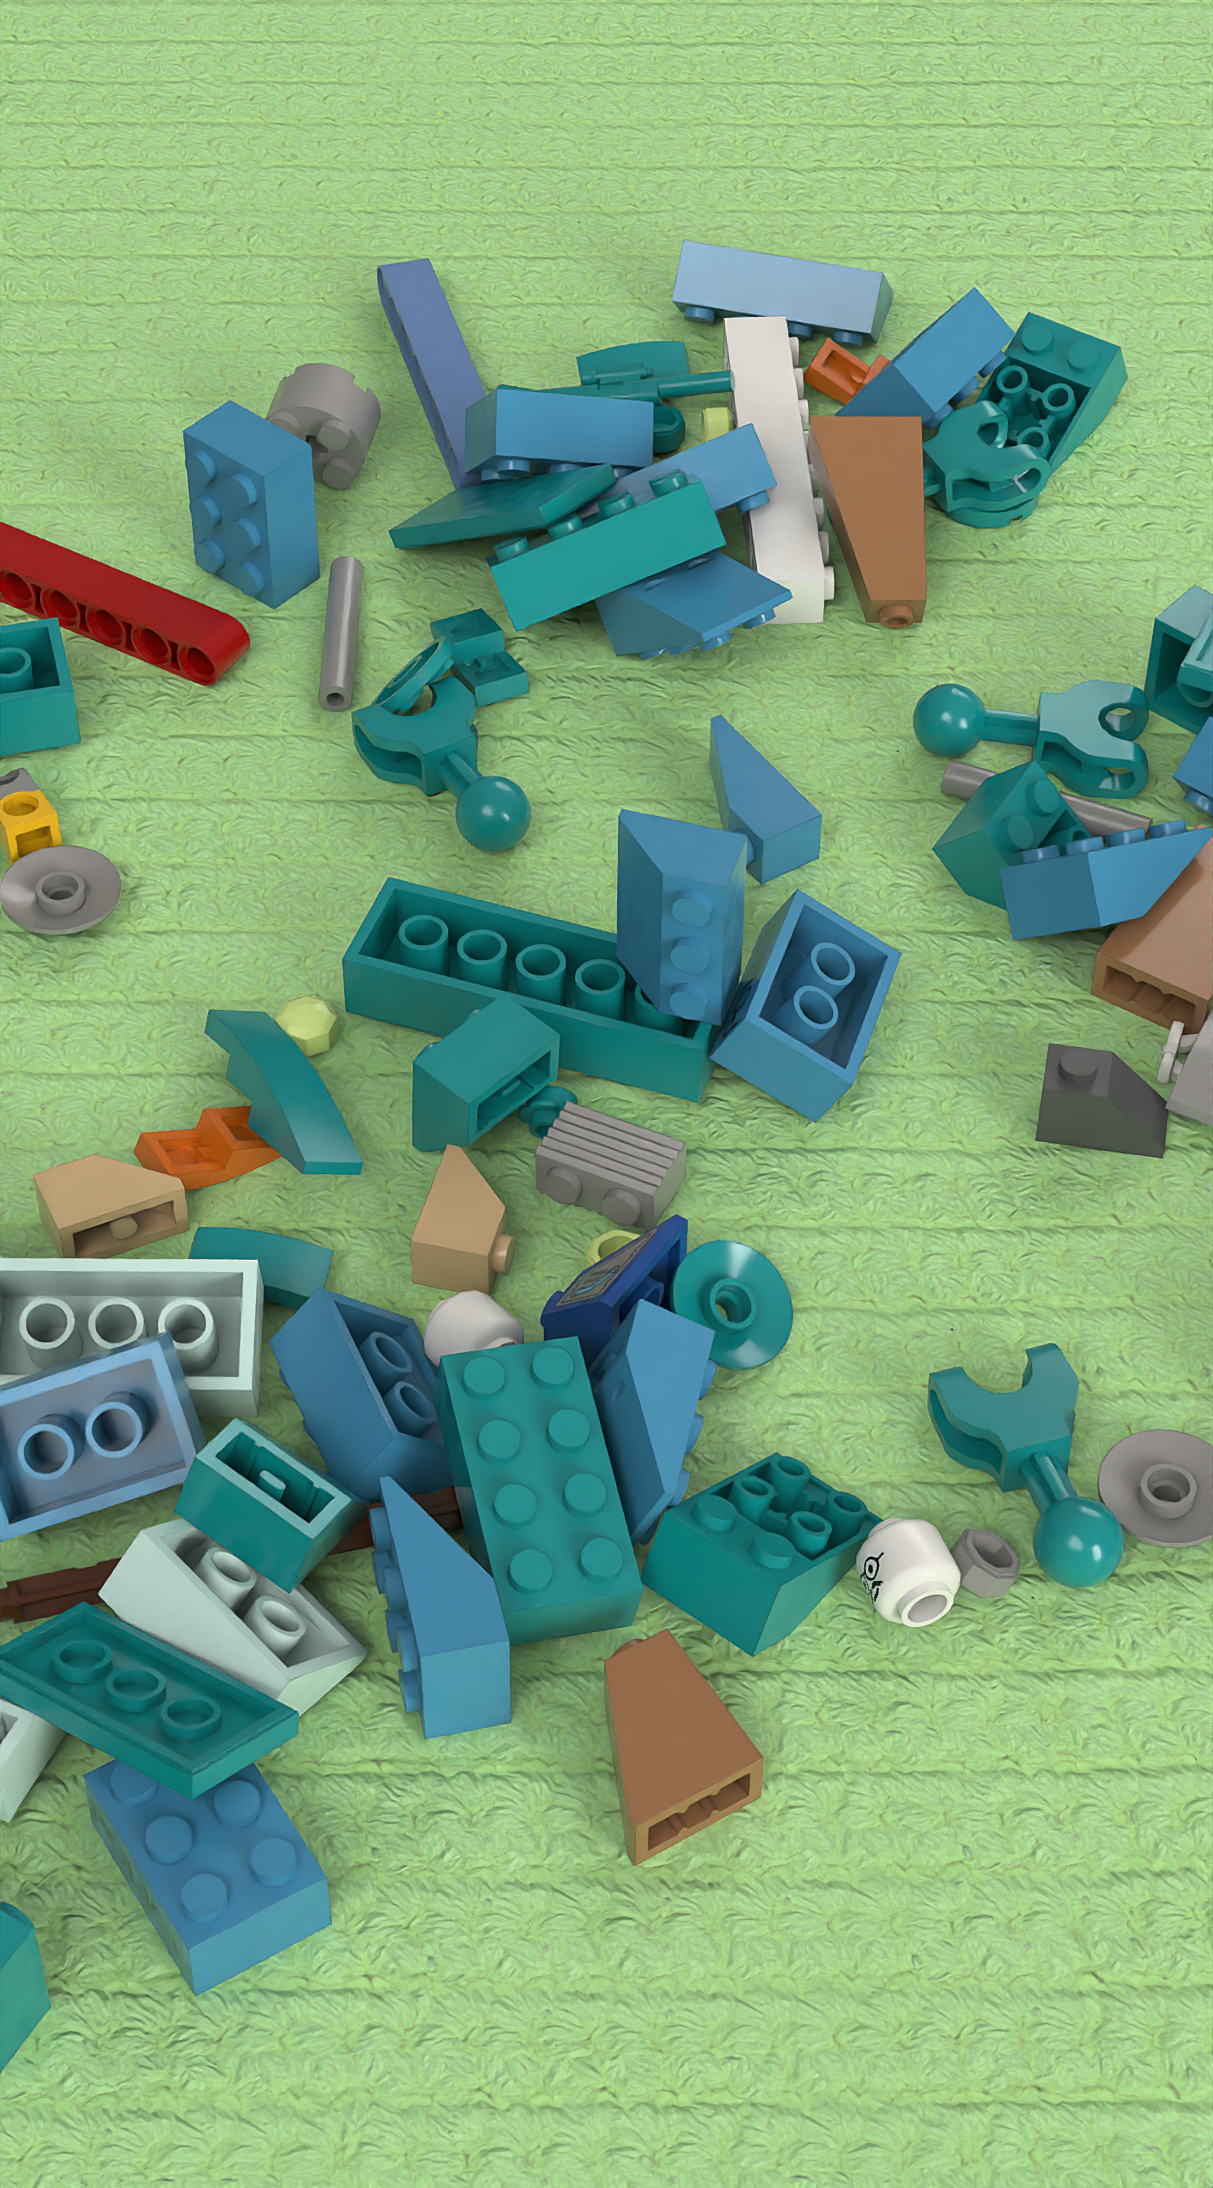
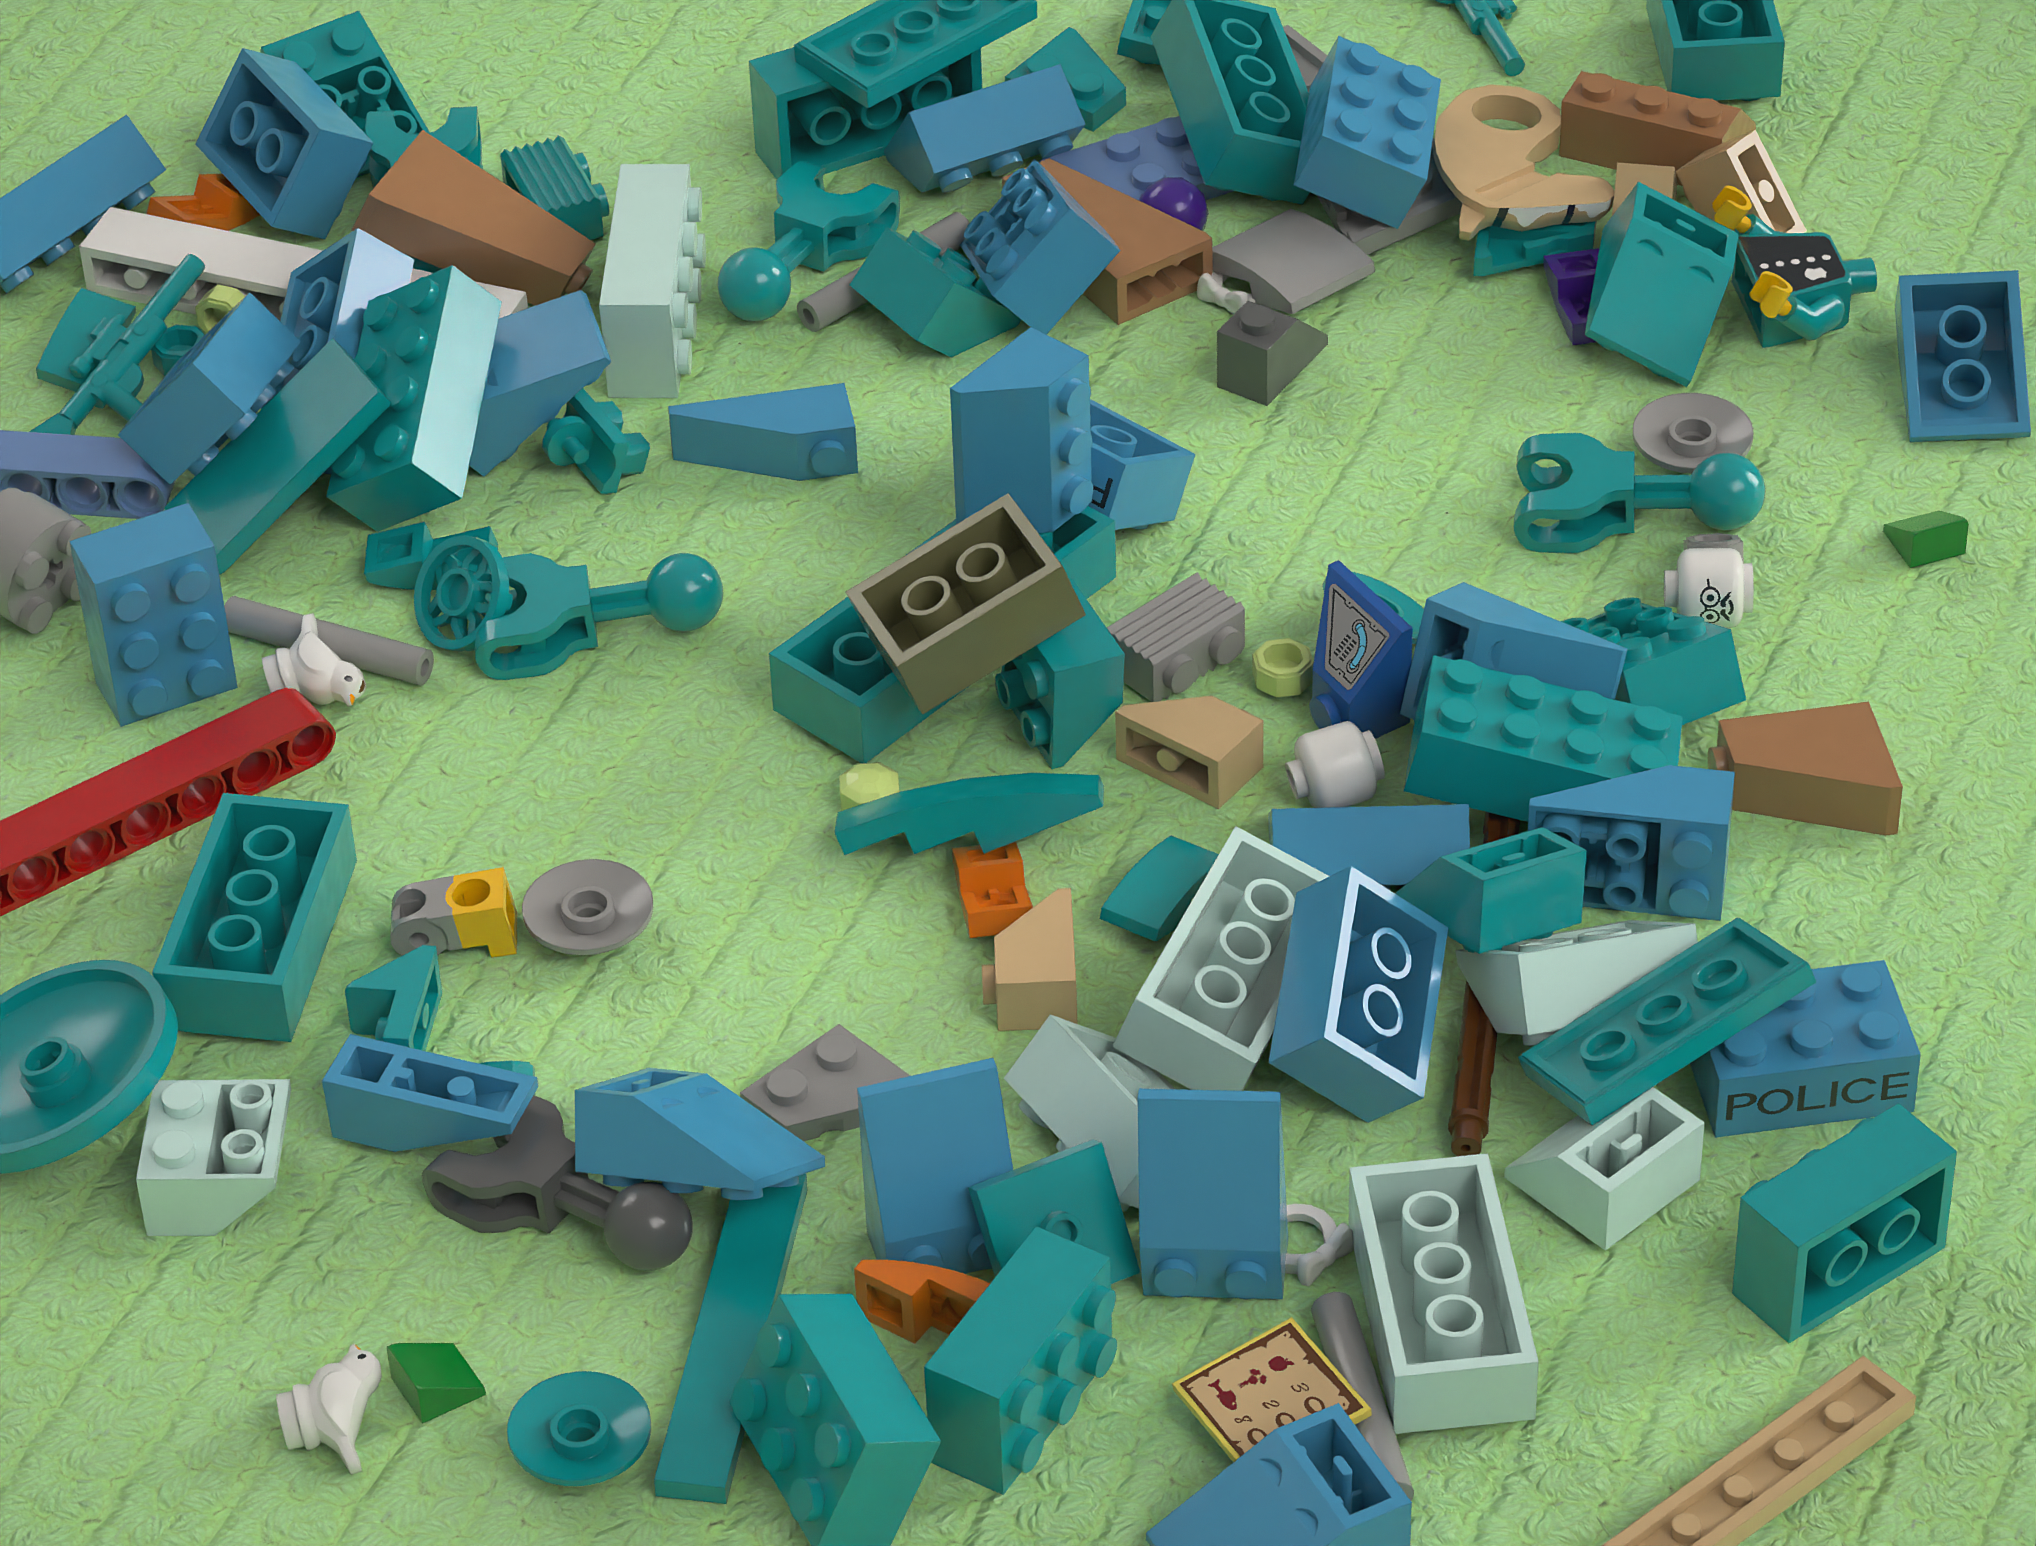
camera: 65 degrees left, 5 degrees down
(288, 630) = (313, 669): none -> white animal
(443, 958) = (966, 603): none -> olive brick
(672, 689) = (594, 442): none -> teal hips
(889, 644) = (652, 280): none -> light aqua brick
(1001, 560) = (558, 184): none -> teal brick
(1137, 1757) = (1928, 537): none -> green slope

